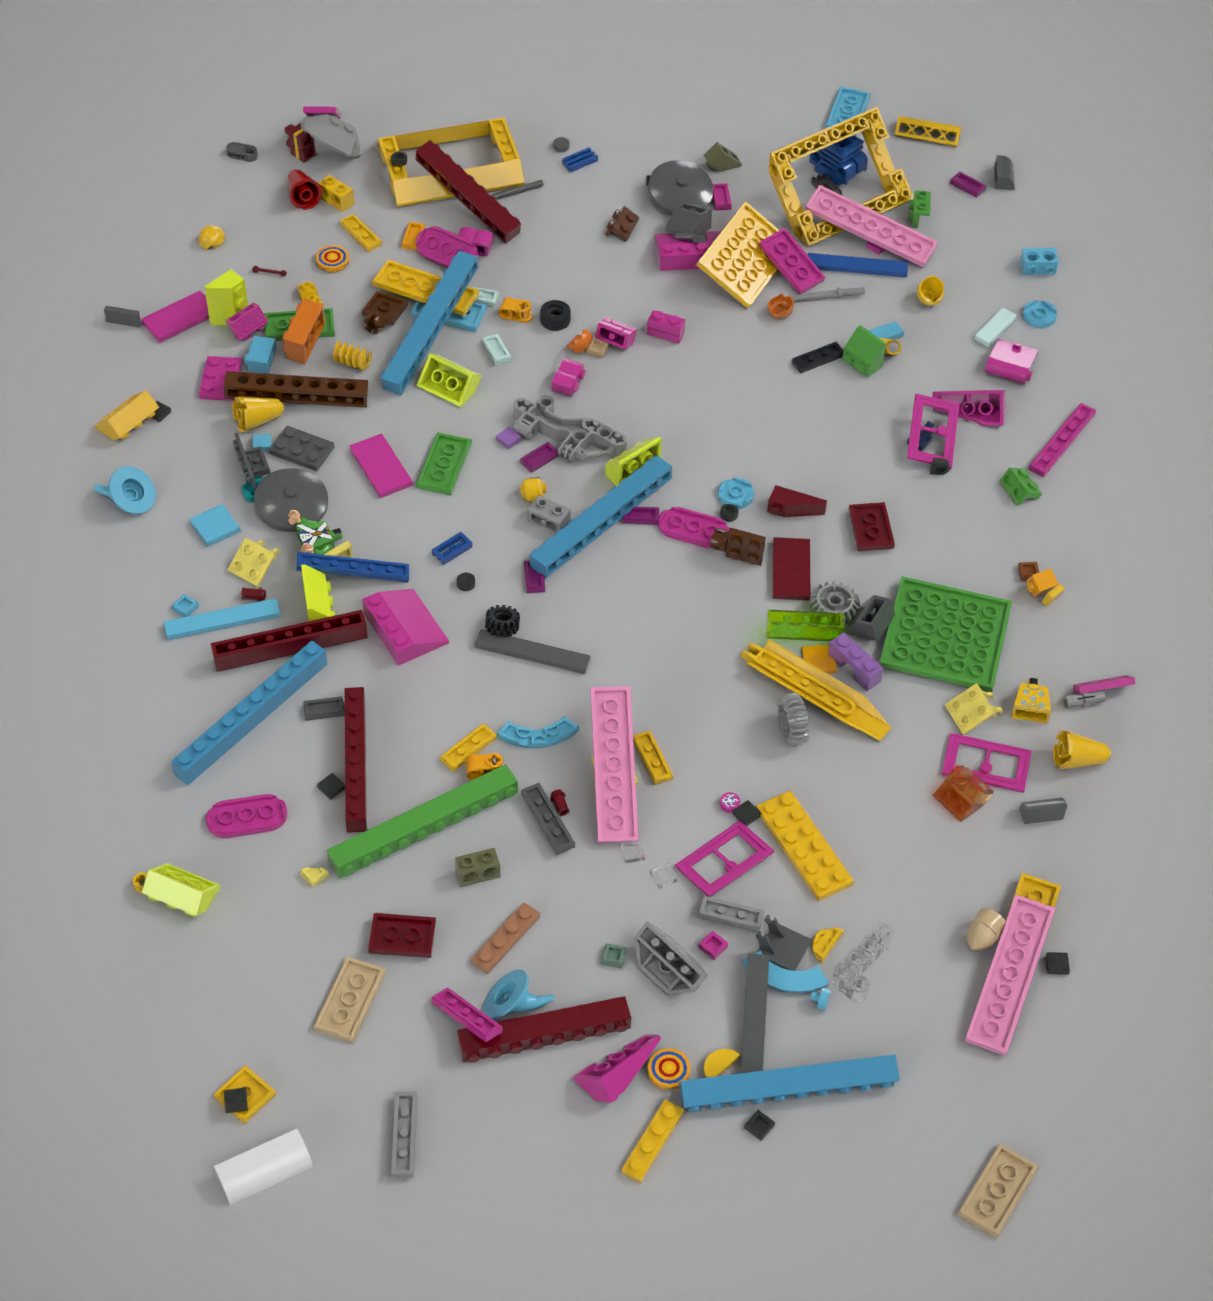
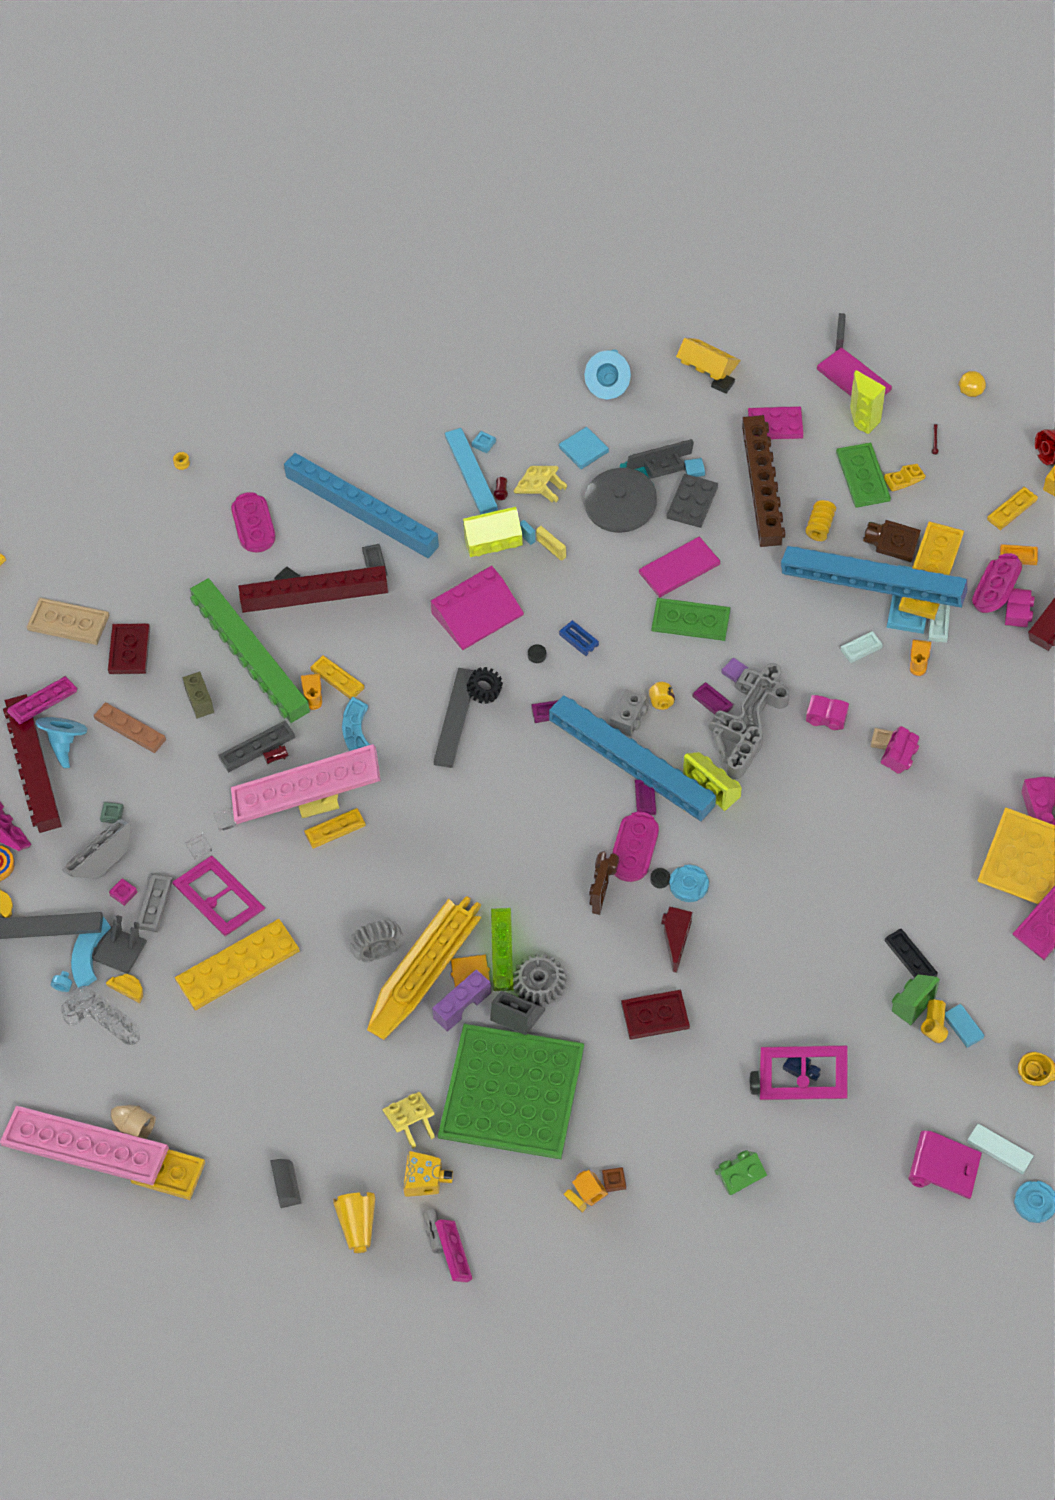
camera: 90 degrees right, 5 degrees up
(180, 889) = (173, 485): neon yellow slope -> none
(247, 321) = (846, 426): dark pink brick -> none
(255, 411) = (726, 452): yellow cone -> none
(261, 354) = (809, 447): medium azure brick -> none
(288, 640) = (442, 520): dark red brick -> none
(304, 331) = (836, 471): orange brick -> none
(314, 535) = (570, 524): torso -> none
(314, 875) = (192, 577): light yellow tile -> none
(332, 258) = (965, 488): light orange tile -> none
(354, 567) = (535, 556): blue tile -> none
(448, 380) = (804, 607): neon yellow slope -> none
(555, 307) = (920, 703): black tyre -> none
(581, 342) = (881, 719): orange hair -> none
(666, 326) = (921, 797): dark pink brick -> none
(729, 802) = (284, 897): dark pink tile -> none
(746, 813) = (271, 911): pearl dark grey tile -> none
(781, 306) = (979, 910): orange hair -> none
(791, 568) = (588, 939): dark red tile -> none
(839, 292) = (1020, 973): light grey sword -> none
(963, 792) = (302, 1106): clear orange slope -> none
(979, 406) = (860, 1124): dark pink wedge -> none
(991, 761) = (347, 1133): dark pink door -> none
(1057, 963) = (103, 1195): pearl dark grey tile -> none
(1062, 440) = (825, 1222): dark pink tile -> none

